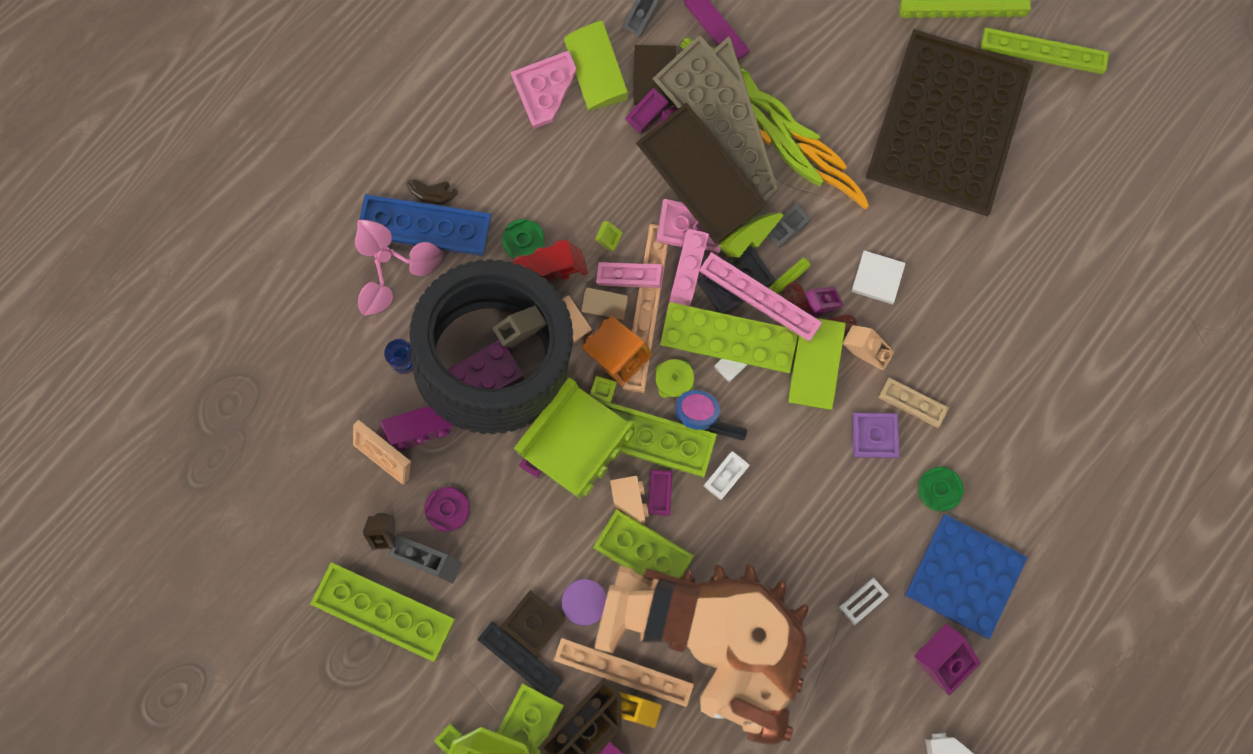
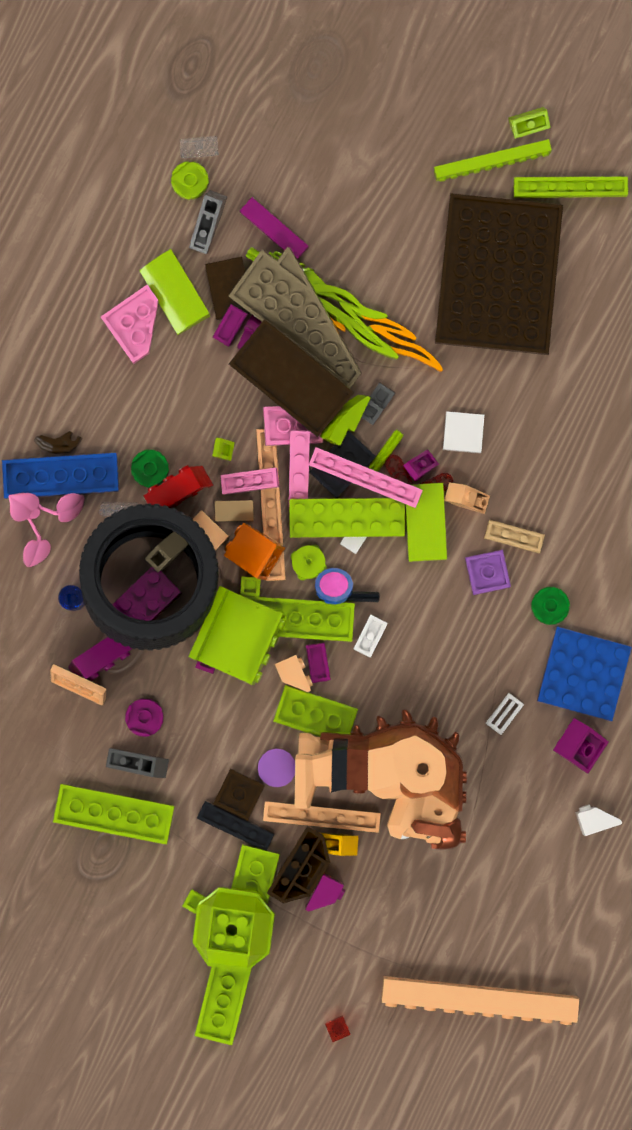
camera: 10 degrees left, 10 degrees up
(380, 531) = (94, 749): dark brown slope -> none

